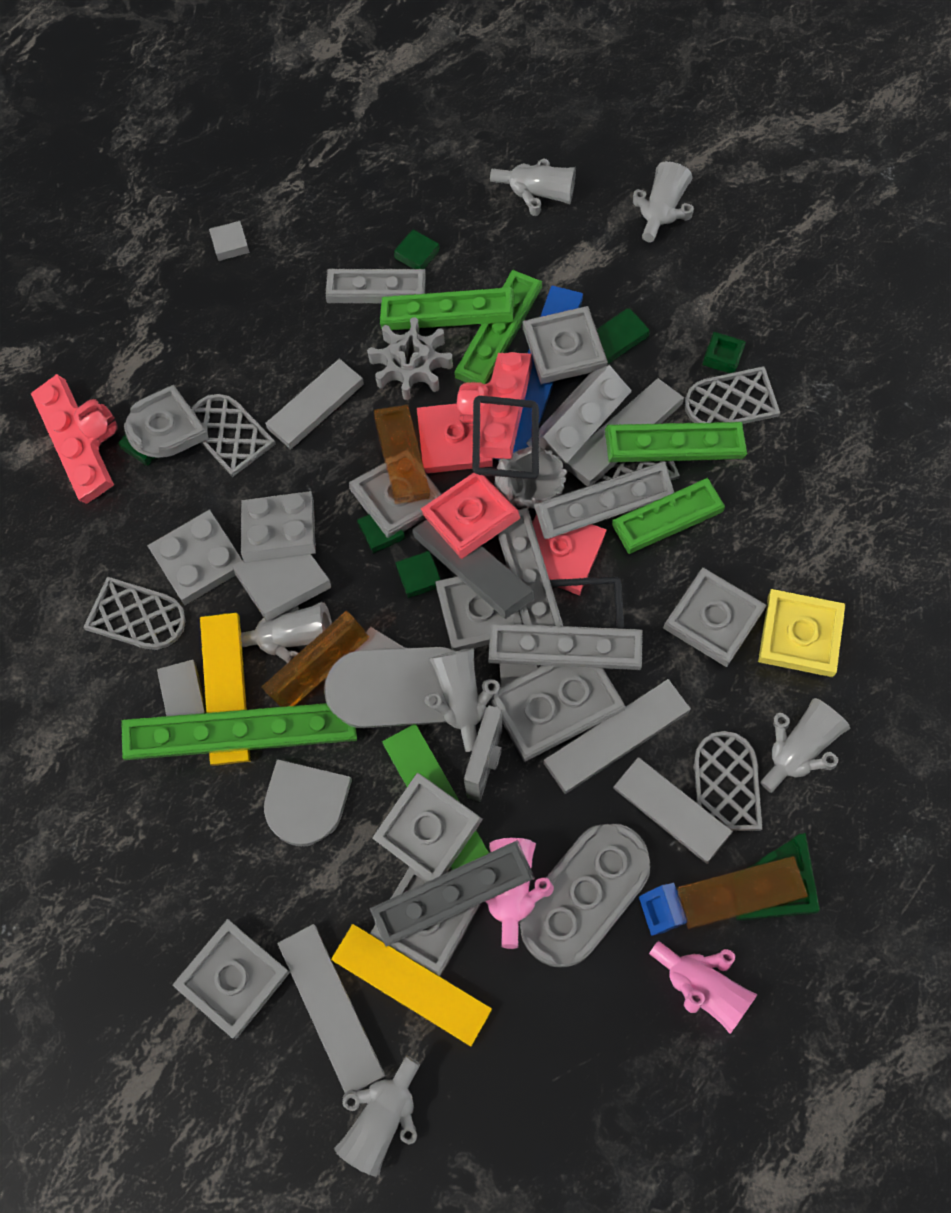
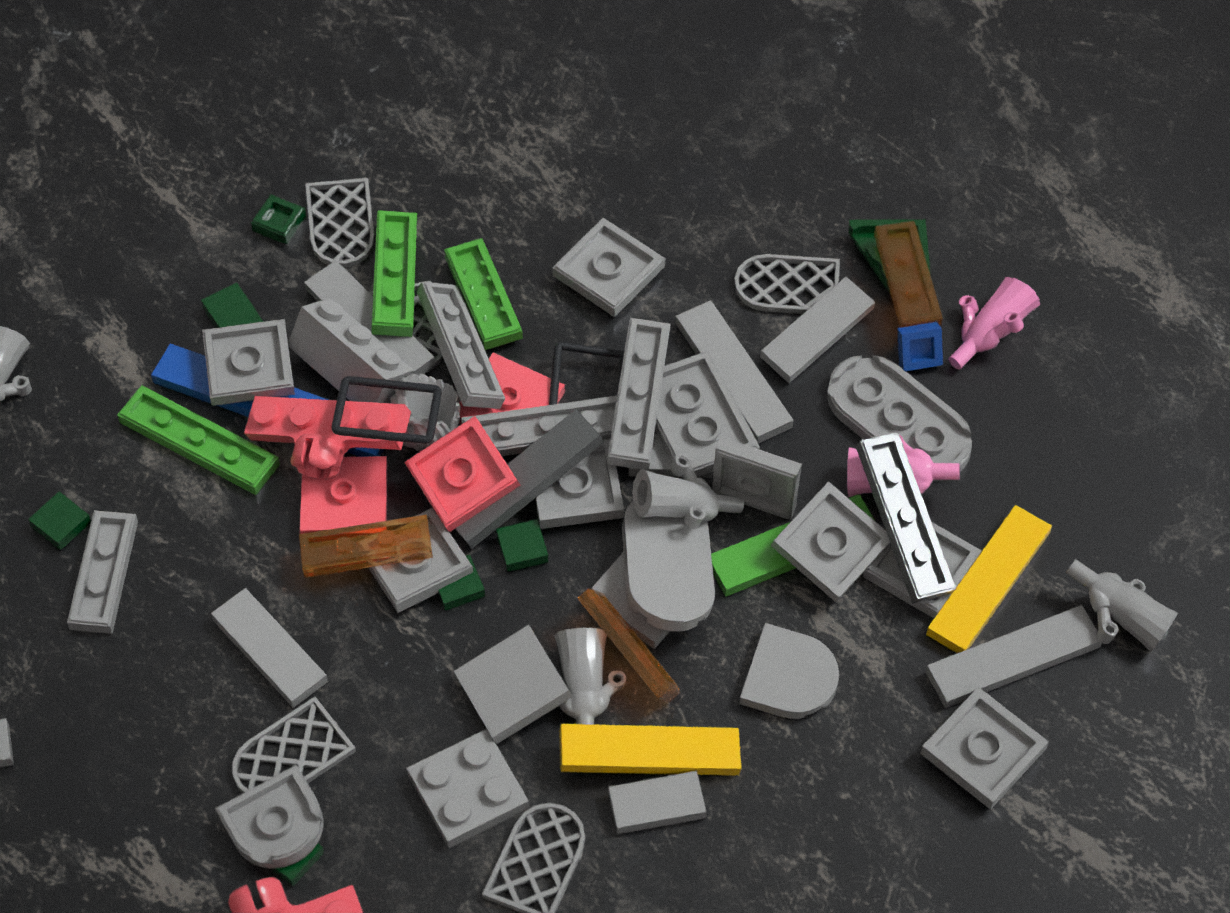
camera: 90 degrees left, 10 degrees down
(232, 731) = (707, 737): bright green tile -> none
(277, 527) = (443, 687): light grey plate -> none
(421, 364) = (228, 531): light grey gear -> none
(448, 308) = (162, 489): bright green tile -> none
(668, 187) = (43, 242): light grey piece -> none
(802, 633) = (635, 194): light yellow plate -> none
(811, 735) = (754, 209): light grey piece -> none

